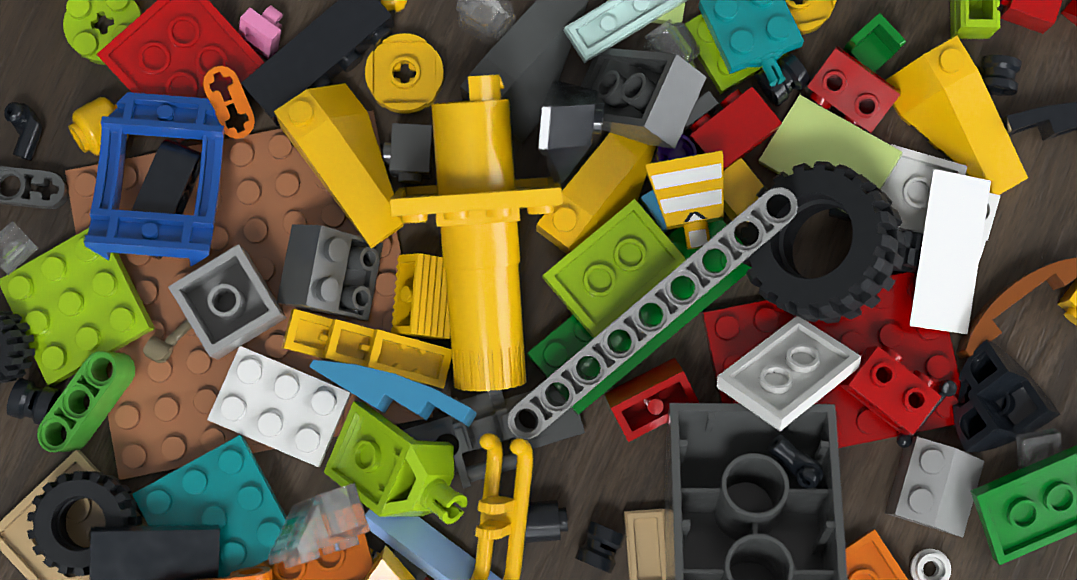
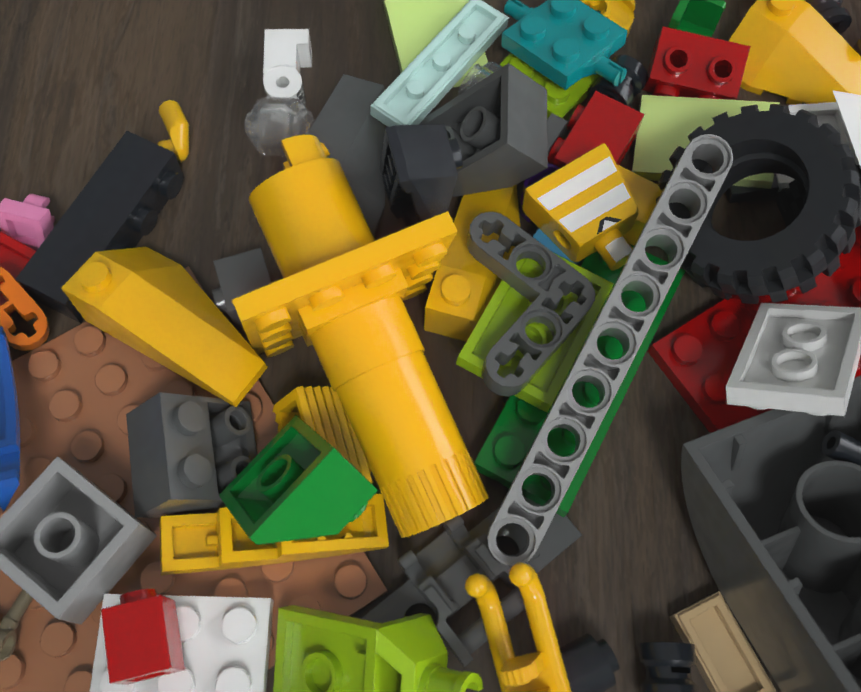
camera: 20 degrees left, 15 degrees down
(259, 388) = (142, 637): none -> red brick
(383, 387) = (308, 572): dark azure slope -> none
(388, 58) = (210, 239): yellow plate -> none
(391, 329) = (297, 489): none -> green slope
(626, 250) = (542, 291): none -> dark grey beam
(645, 400) = (644, 460): red brick -> none

